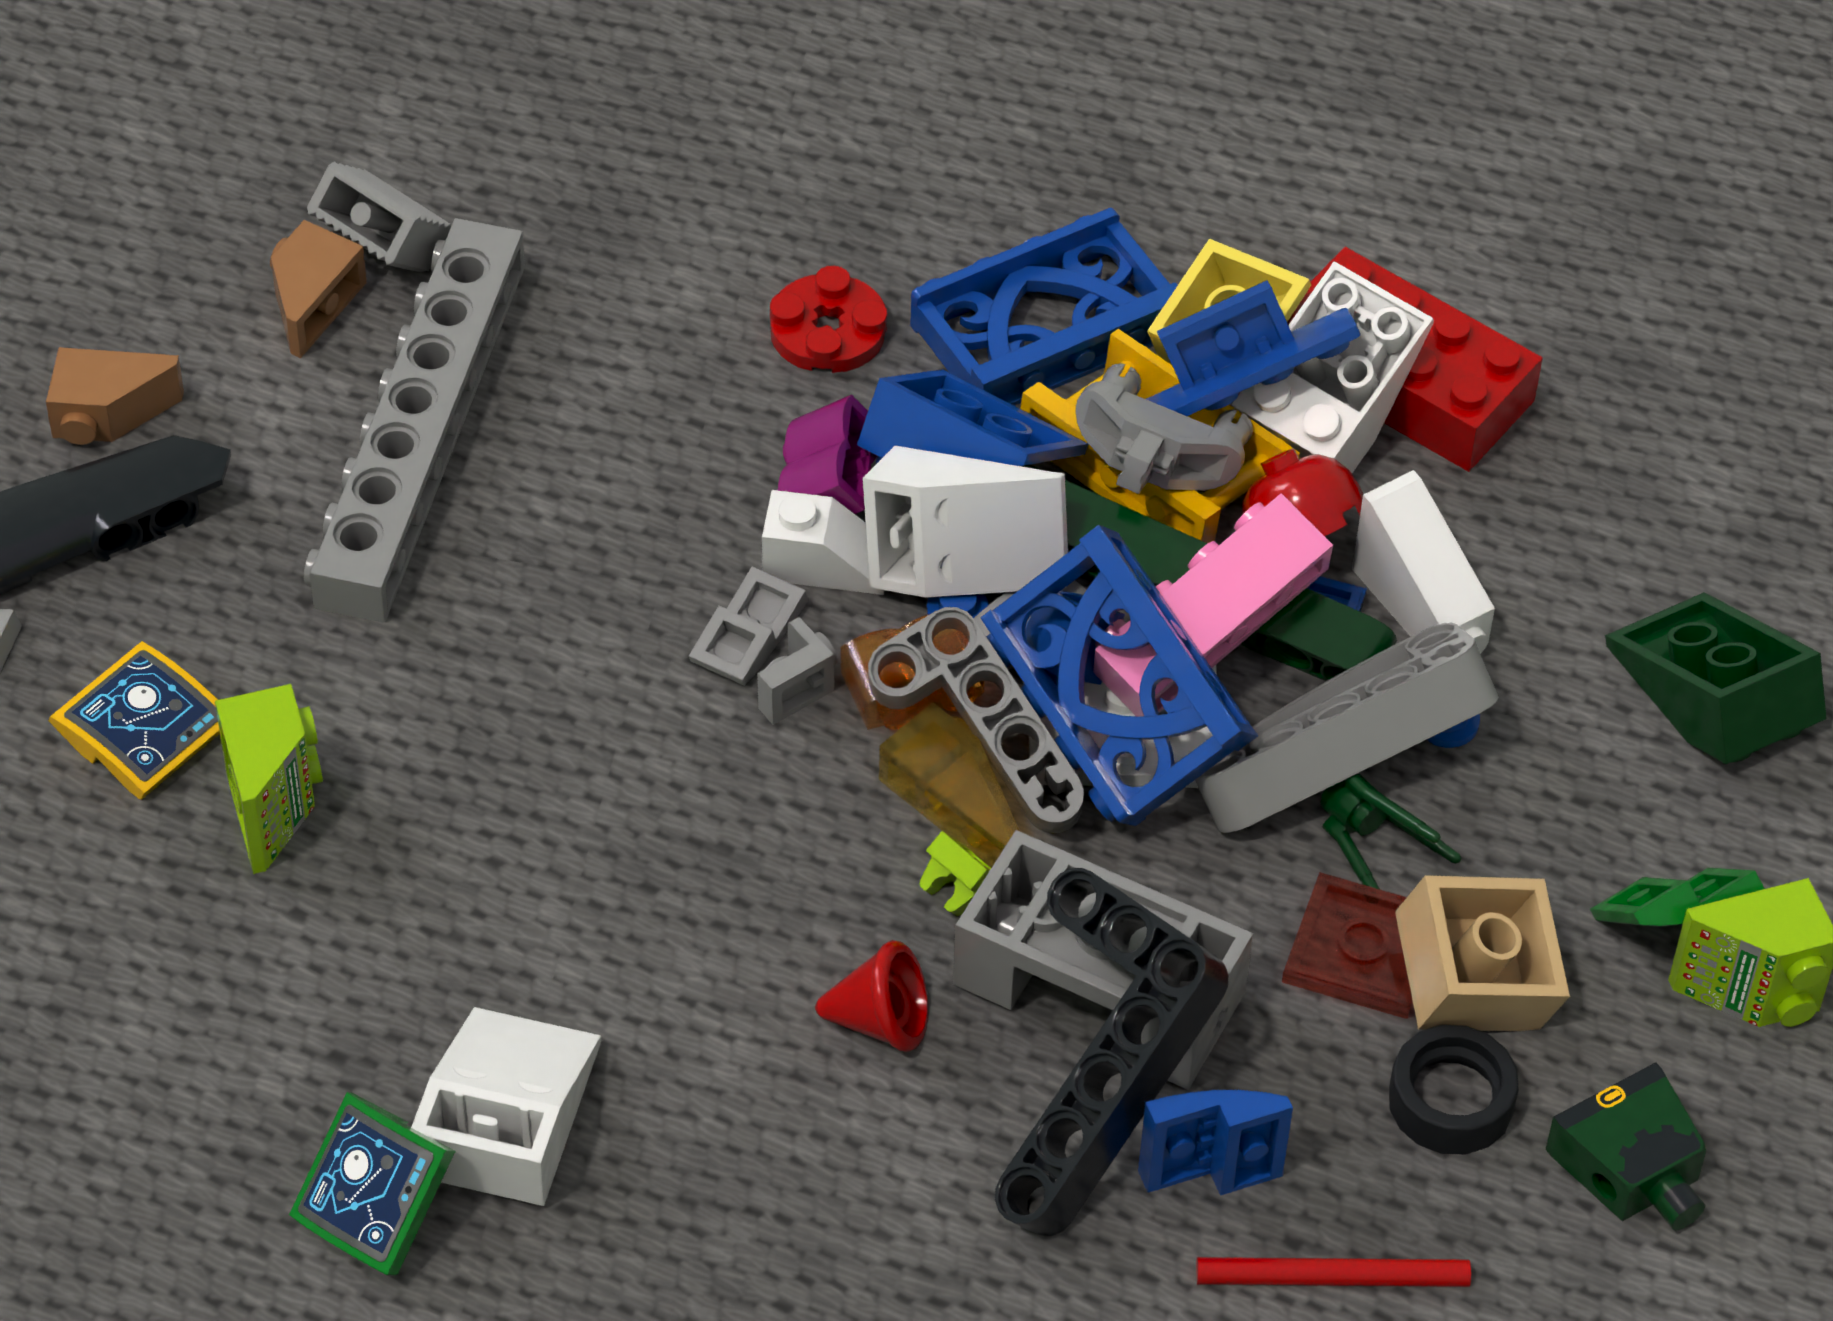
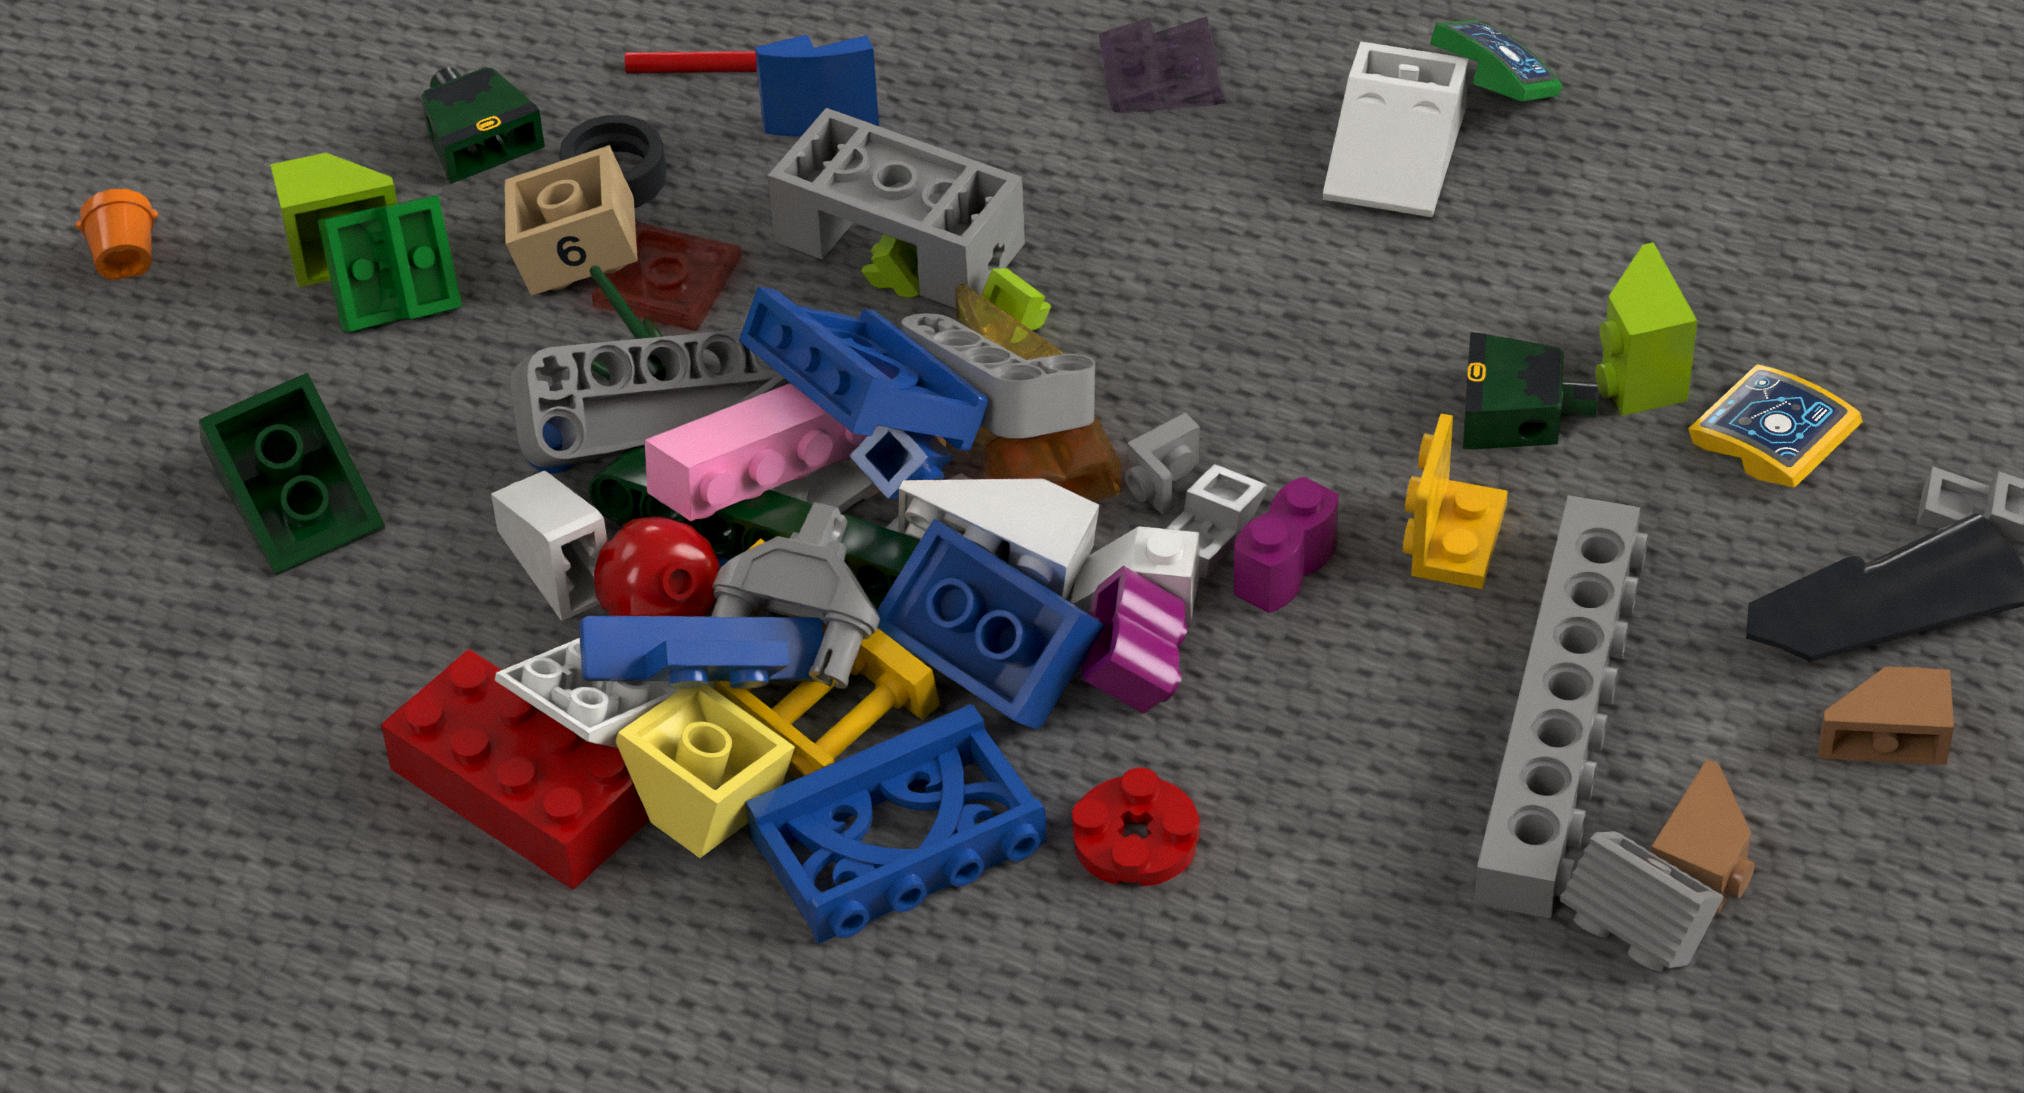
camera: 175 degrees left, 5 degrees down
(411, 746) = (1519, 394): none -> dark green torso
(499, 599) = (1452, 520): none -> yellow bracket
(672, 568) = (1286, 544): none -> magenta brick
(788, 1246) = (1161, 68): none -> clear purple slope
(882, 998) = (1089, 208): red hat -> none
(1113, 1051) = (882, 96): black beam -> none

